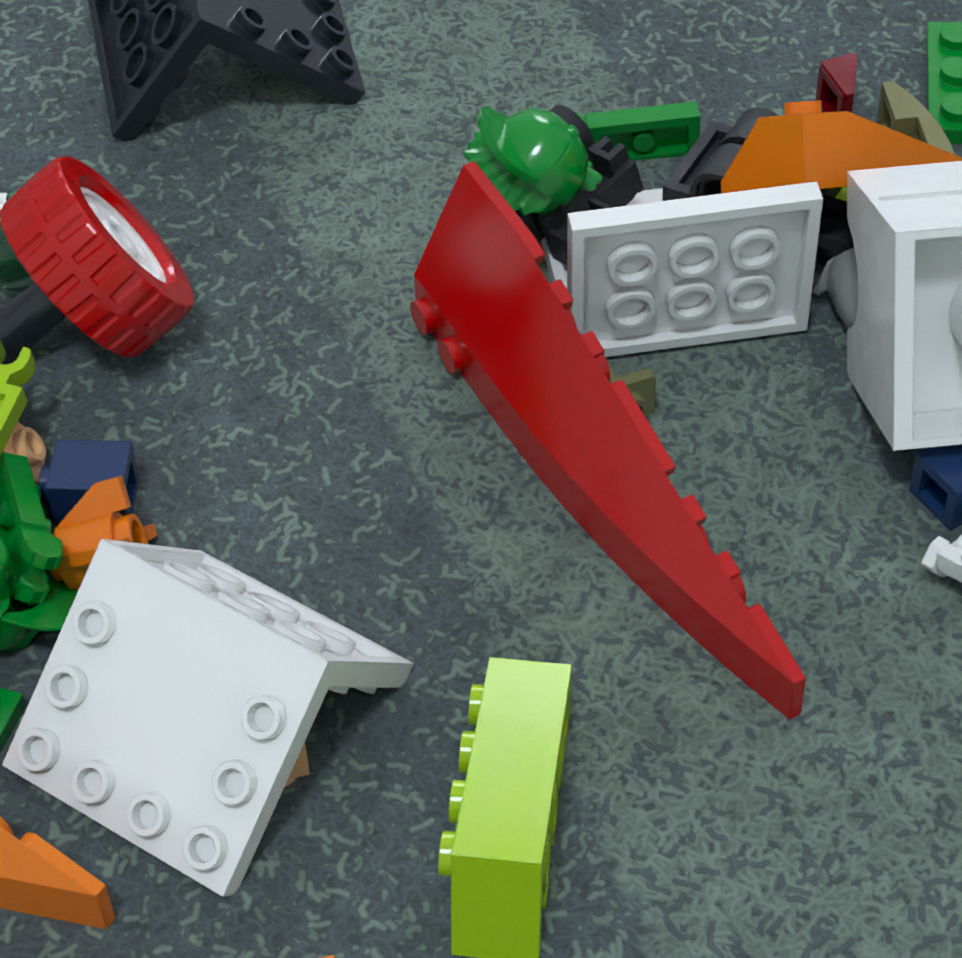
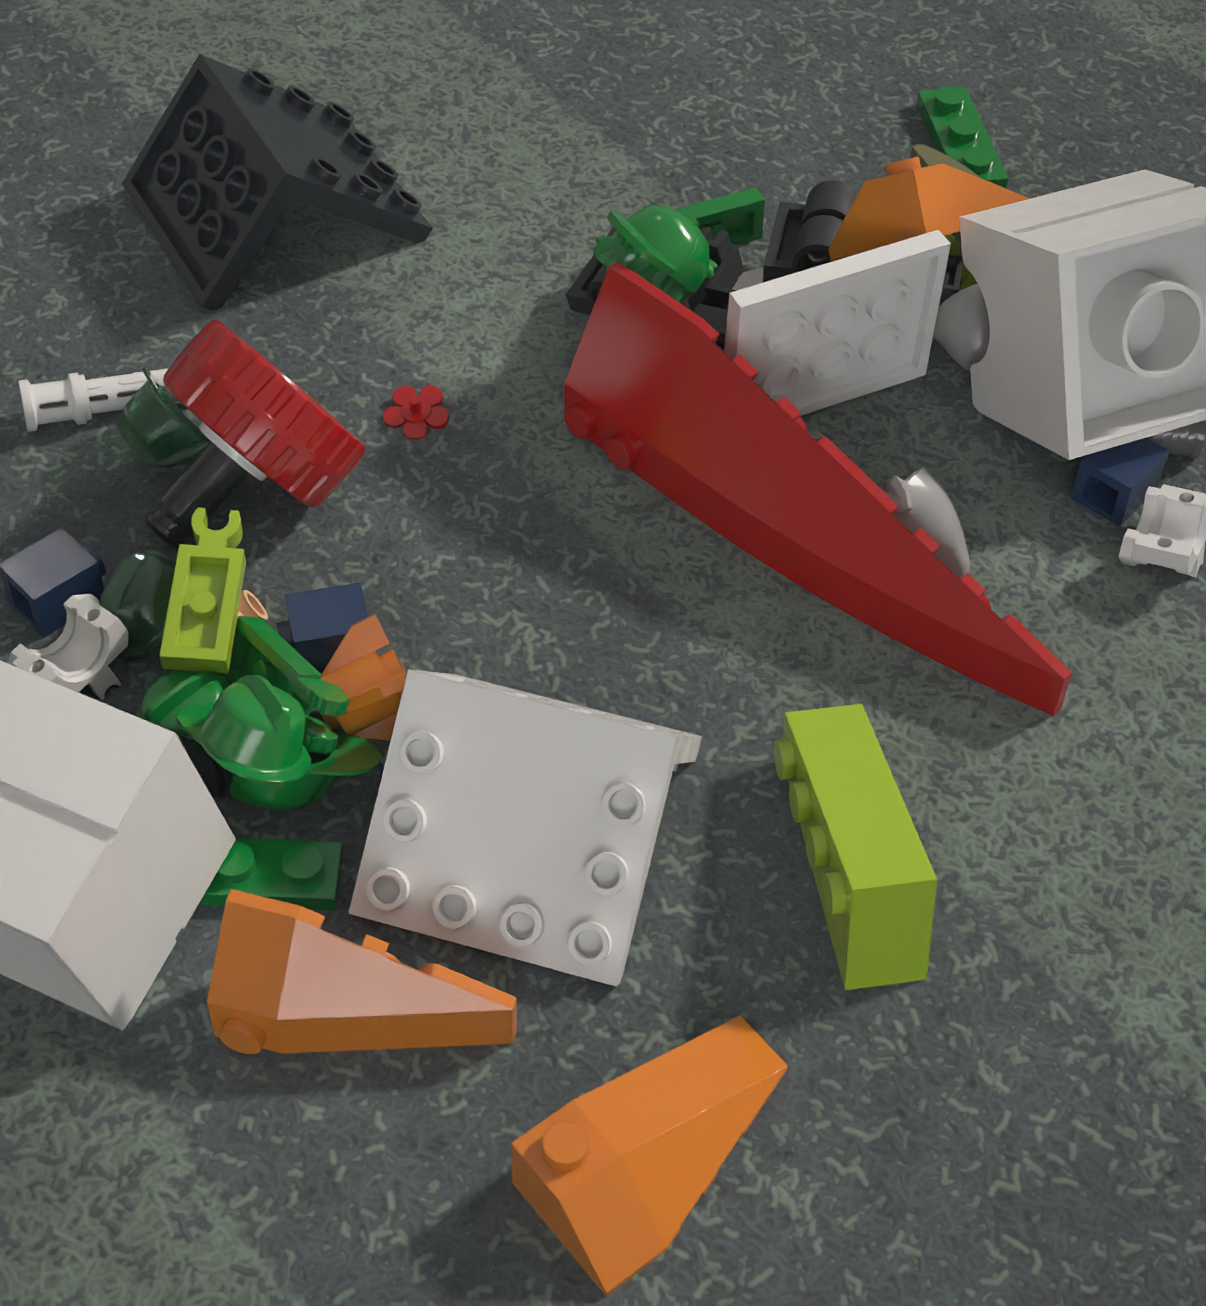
camera: 20 degrees left, 0 degrees up
(274, 276) = (417, 411): none -> red plant
(725, 485) = (927, 506): none -> light grey hat
(837, 83) = (867, 155): dark red slope -> none

